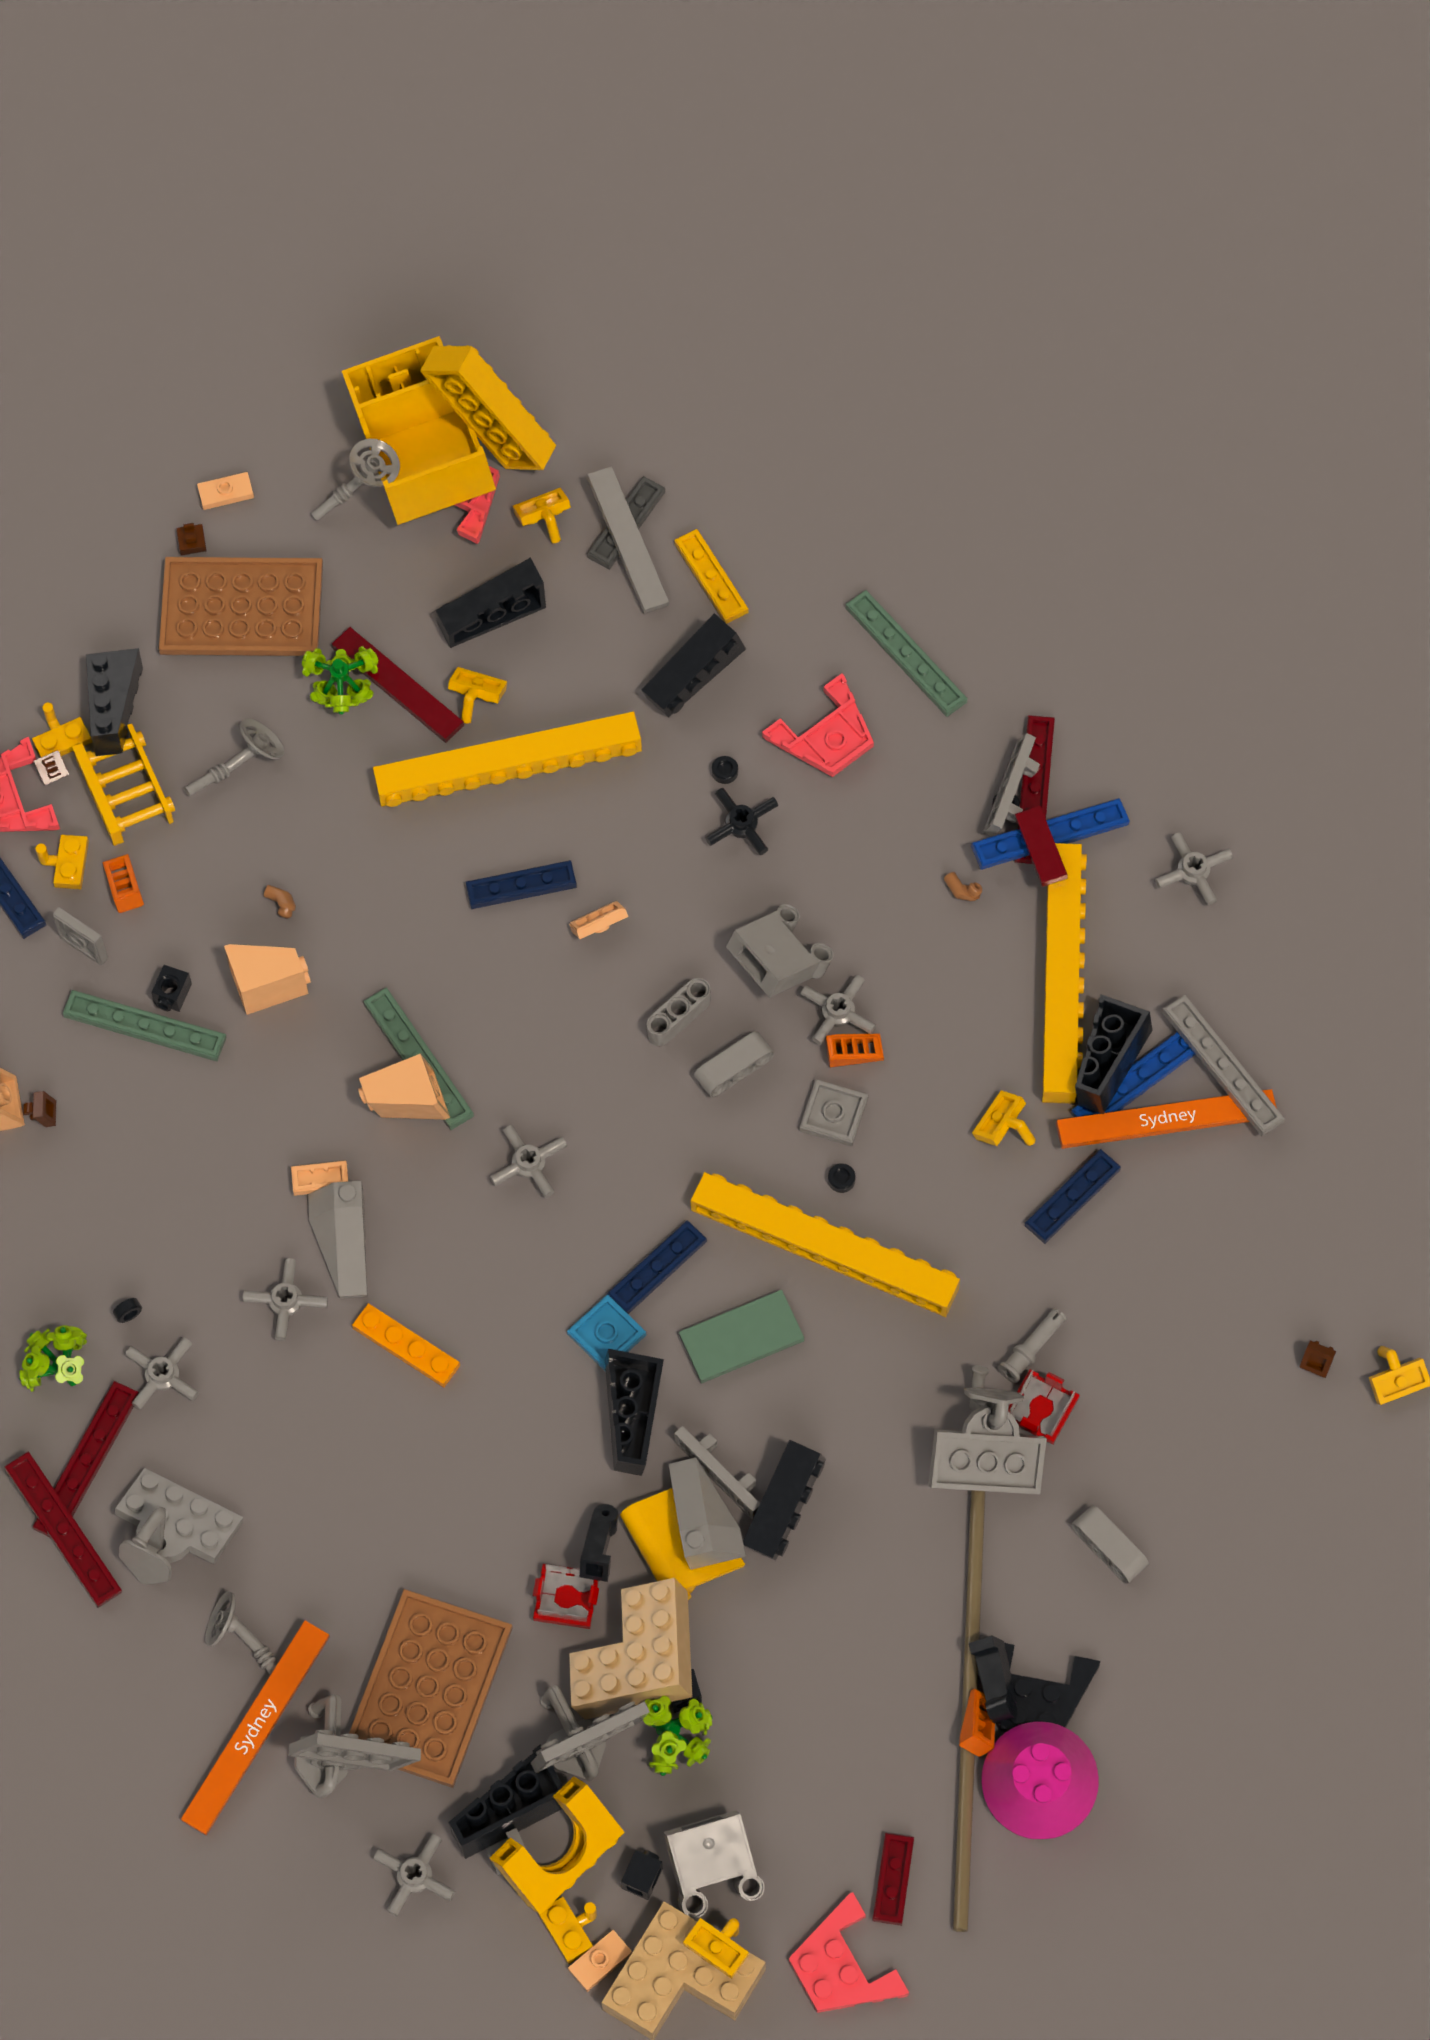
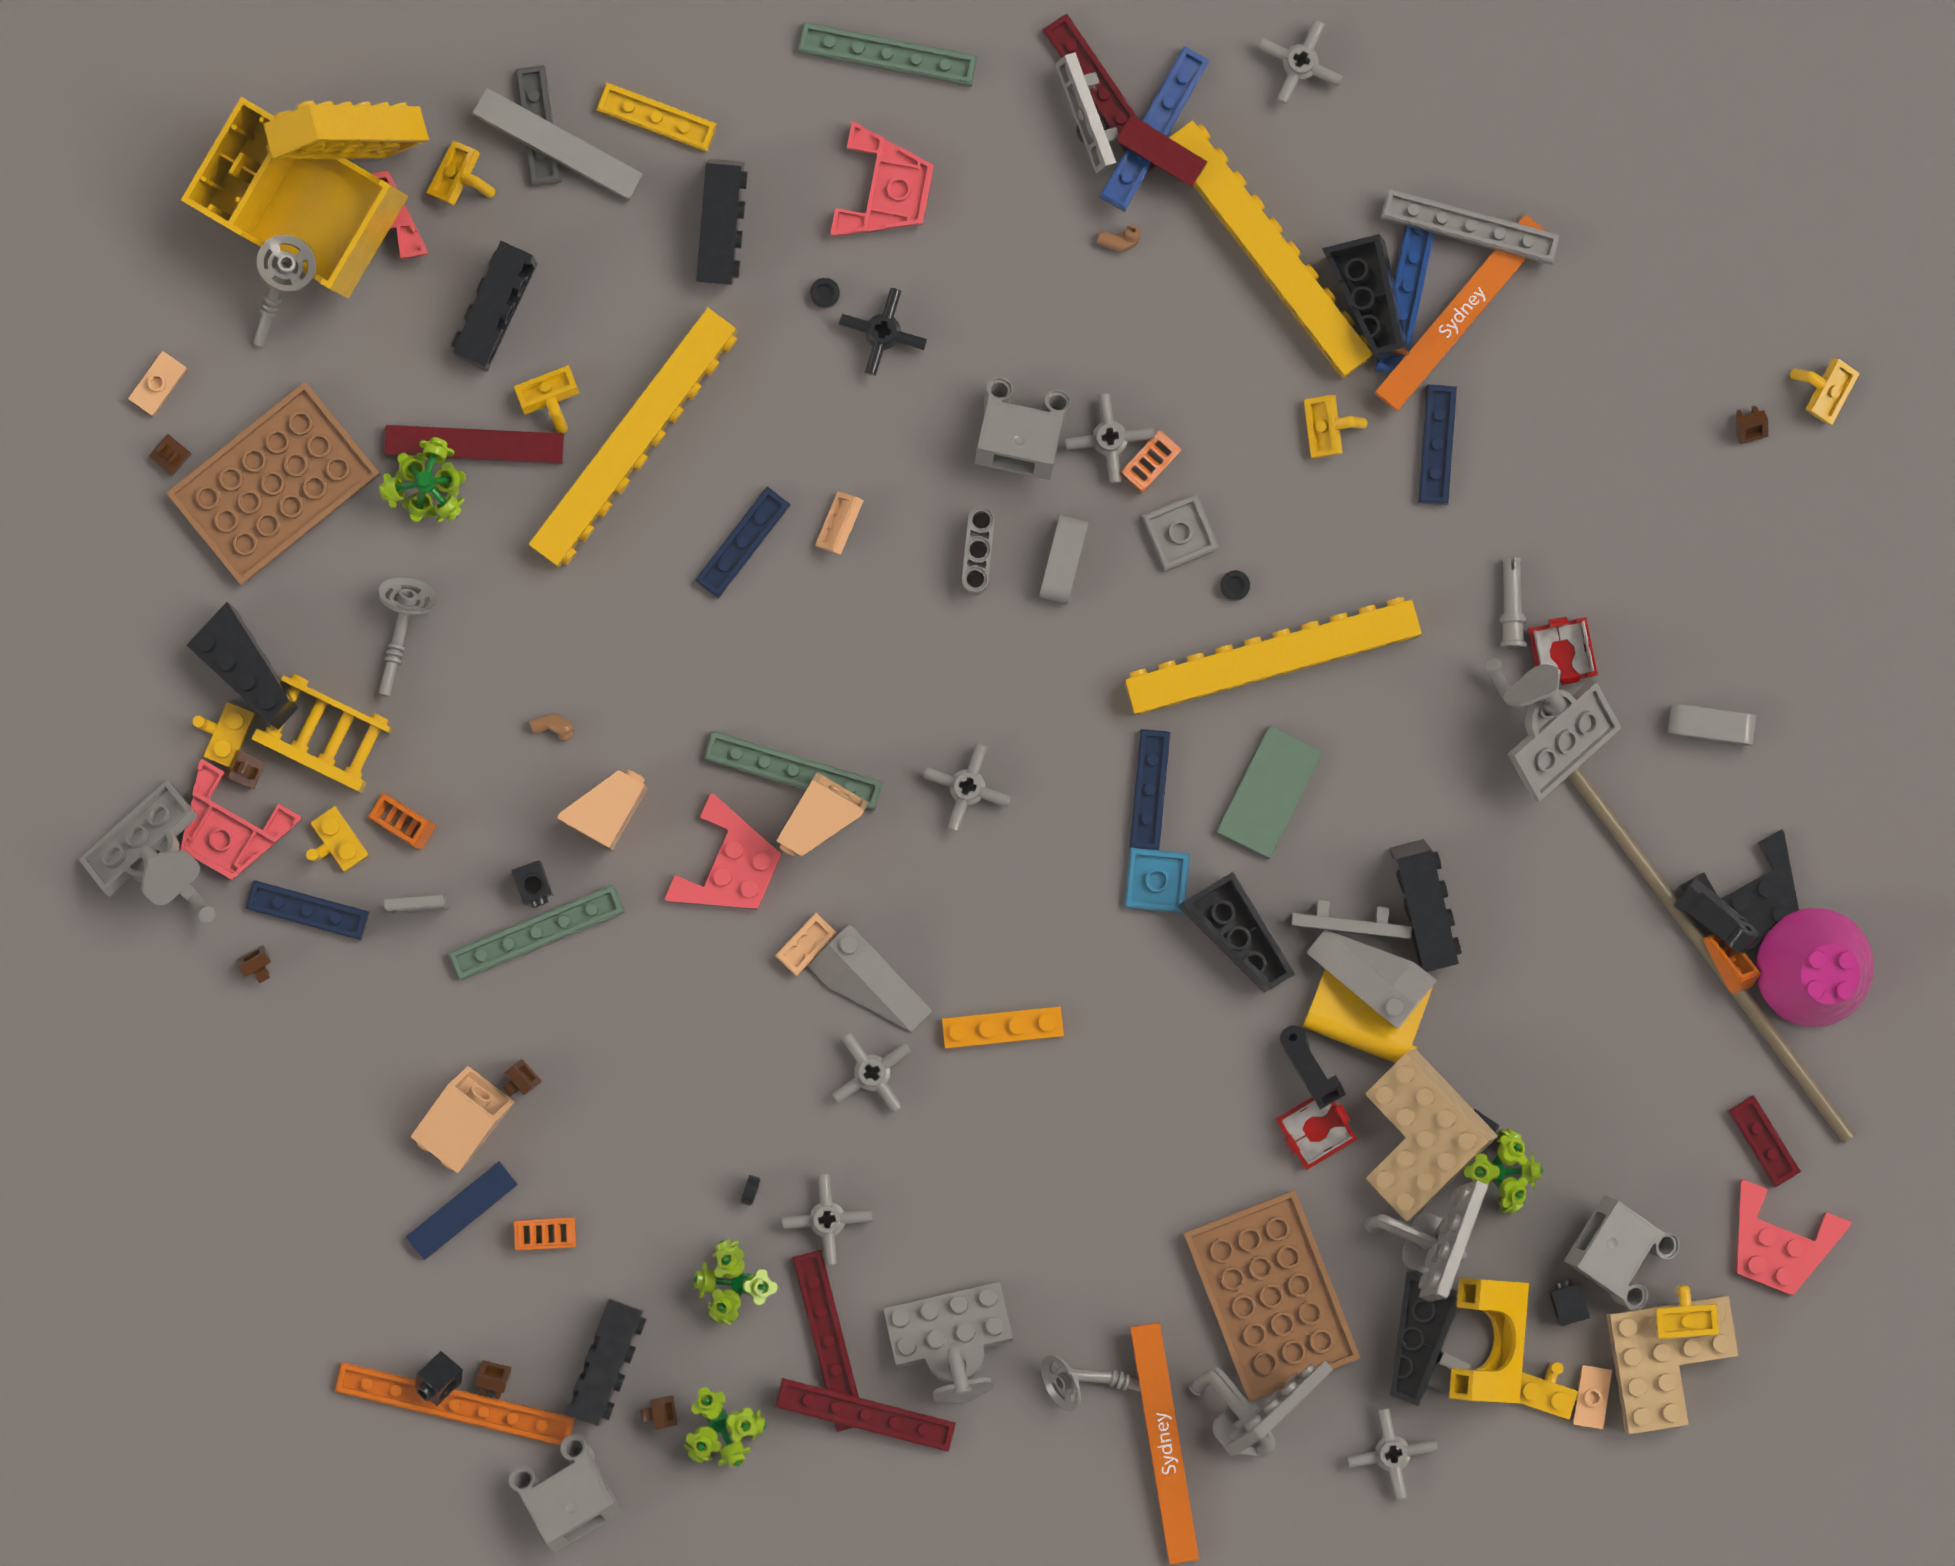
camera: 45 degrees left, 20 degrees up
(321, 1093) = (740, 869): none -> coral wing

